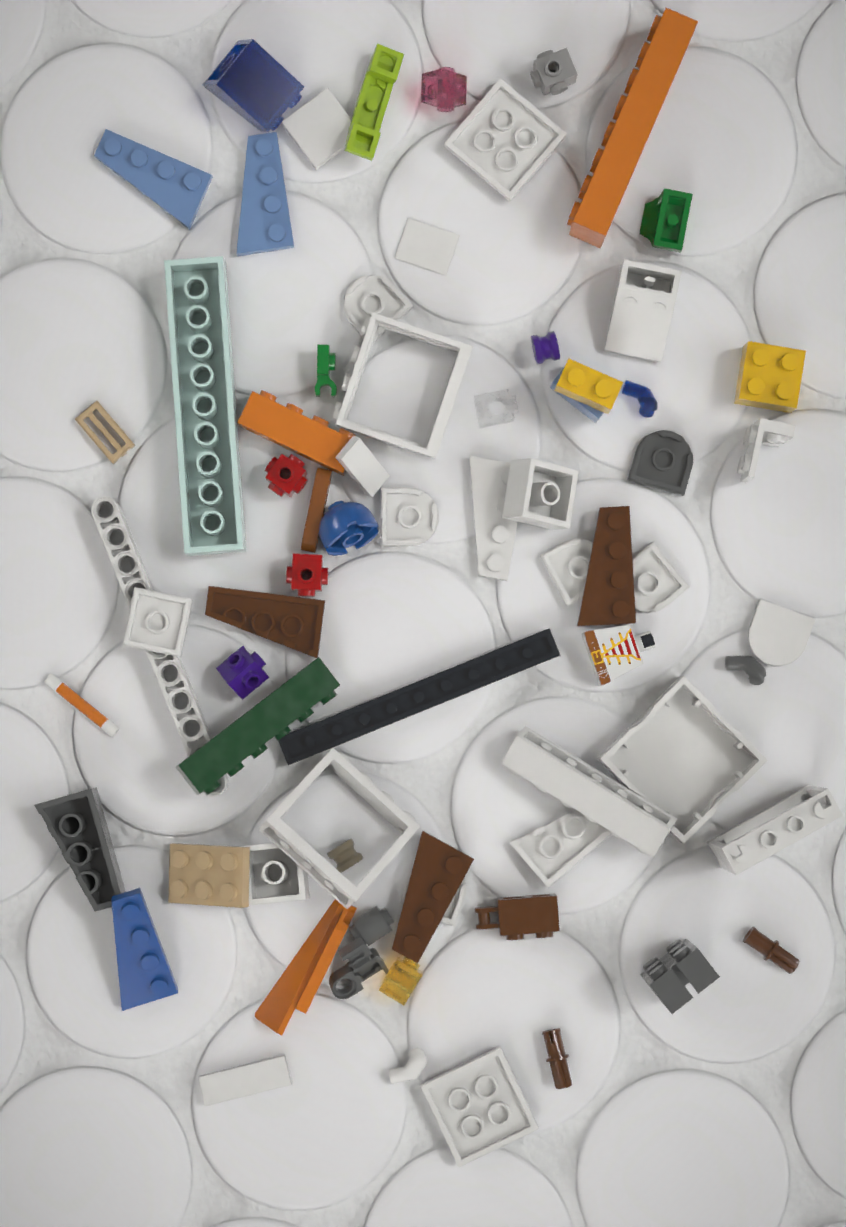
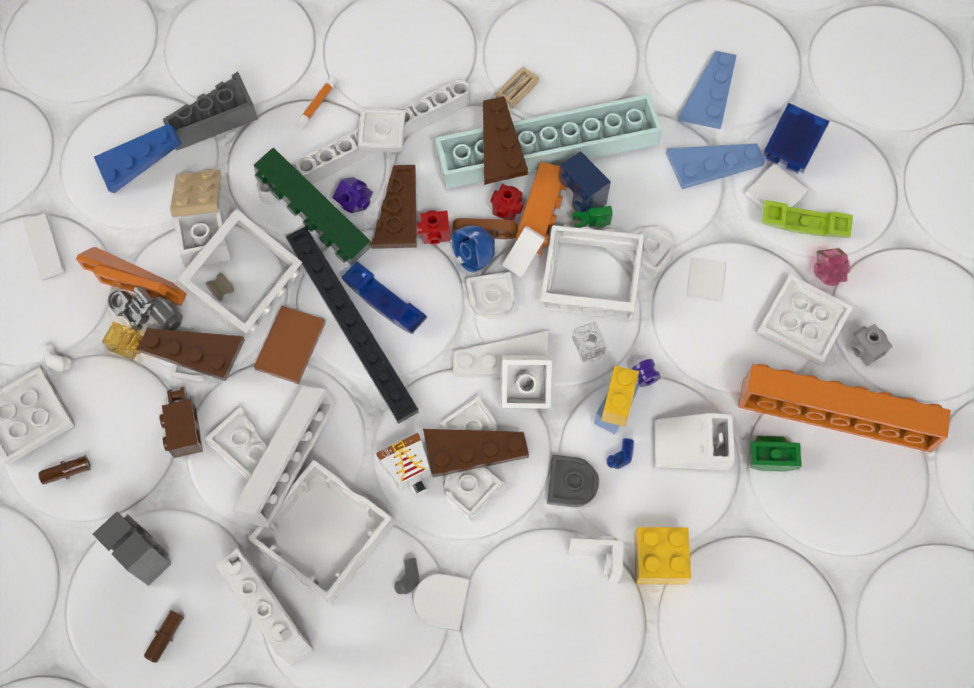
camera: 85 degrees right, 20 degrees down
(221, 469) = (501, 145): none -> reddish brown wing
(283, 371) = (586, 182): none -> dark blue brick
(396, 650) = (382, 299): none -> clear blue slope
(435, 775) = (289, 345): none -> dark orange tile

